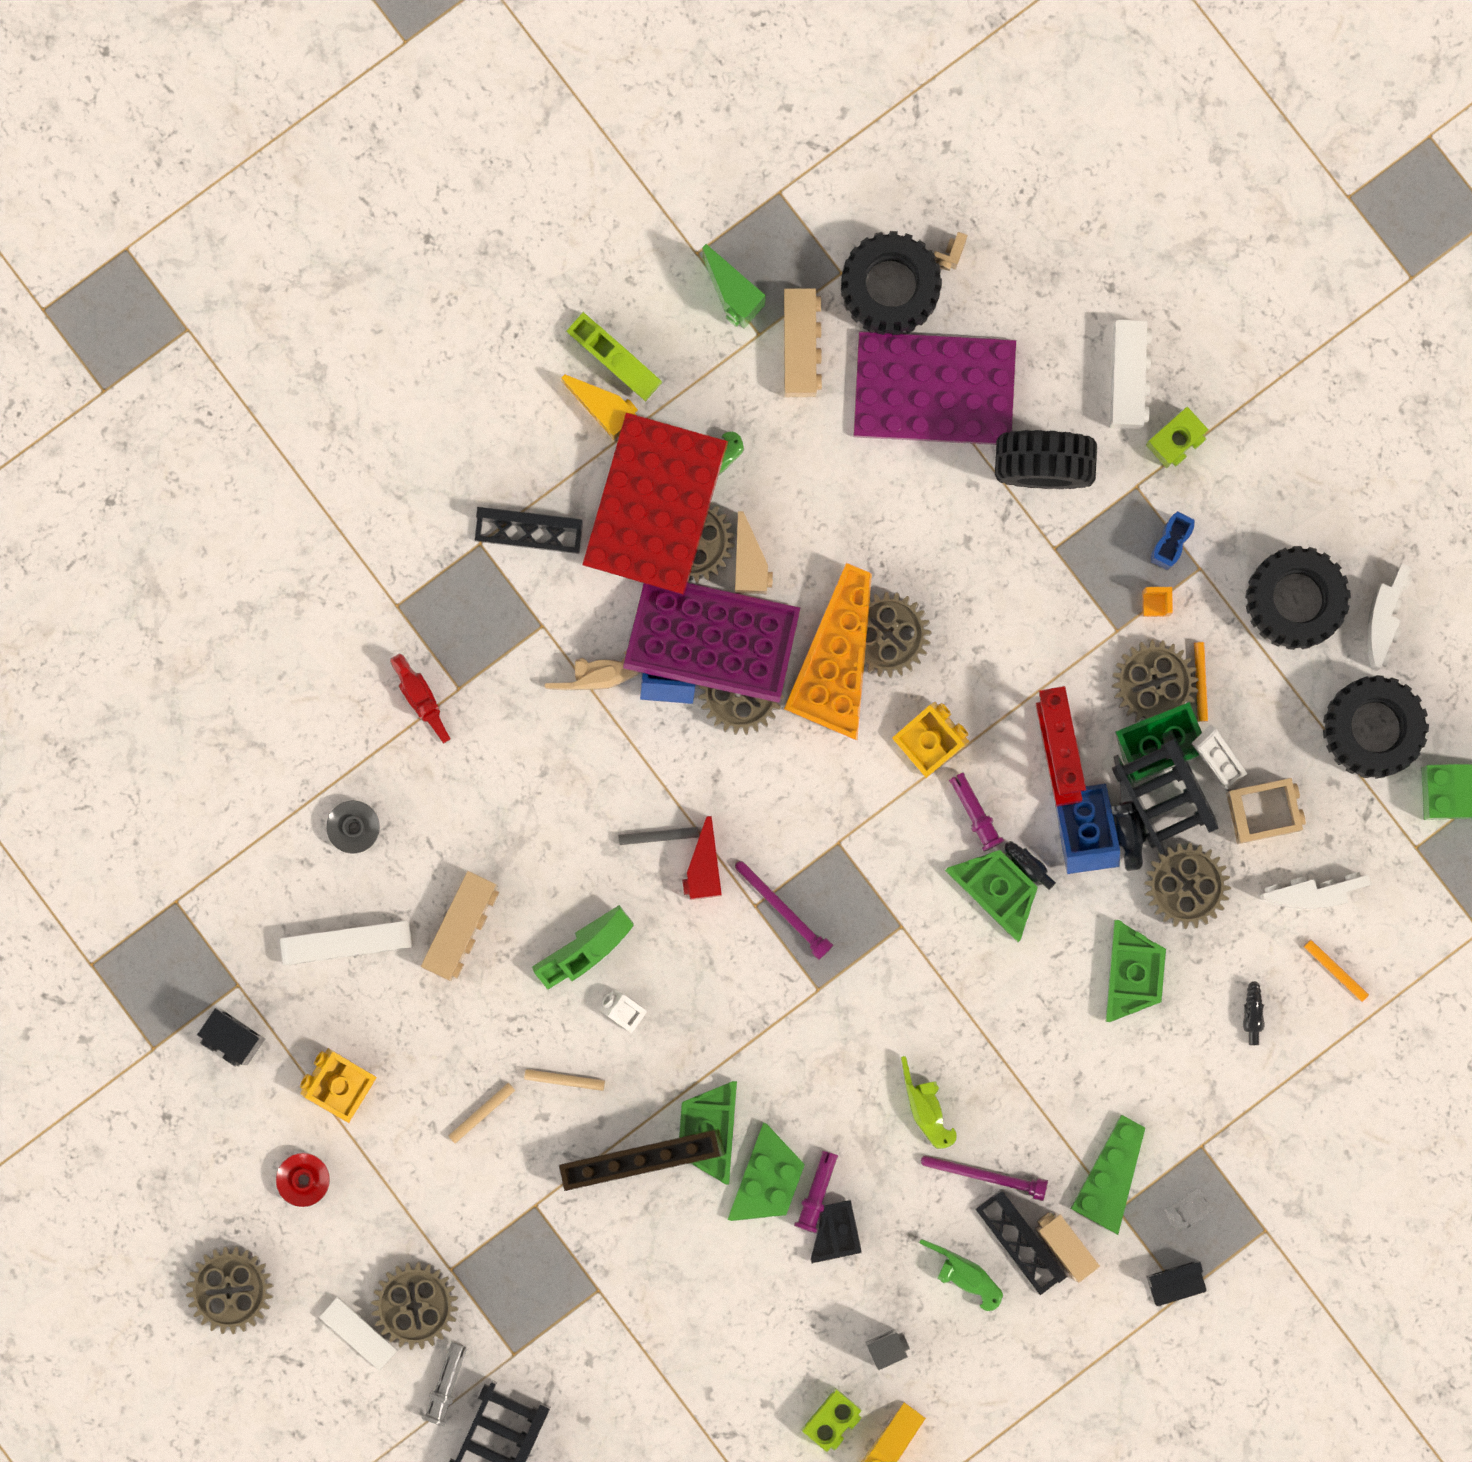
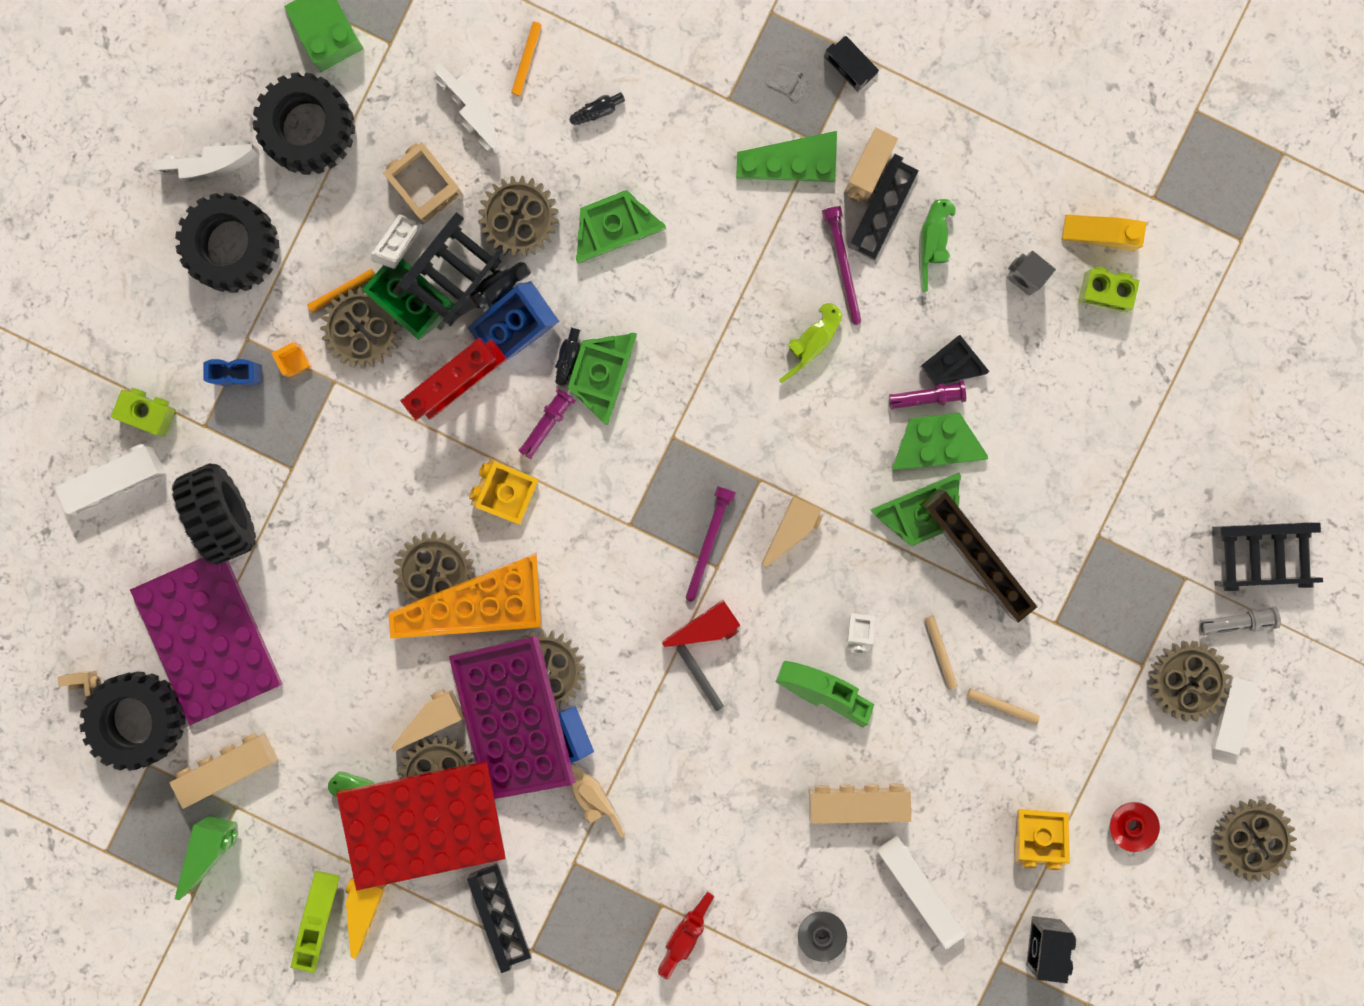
camera: 110 degrees left, 5 degrees up
(757, 999) = (795, 525): none -> tan slope

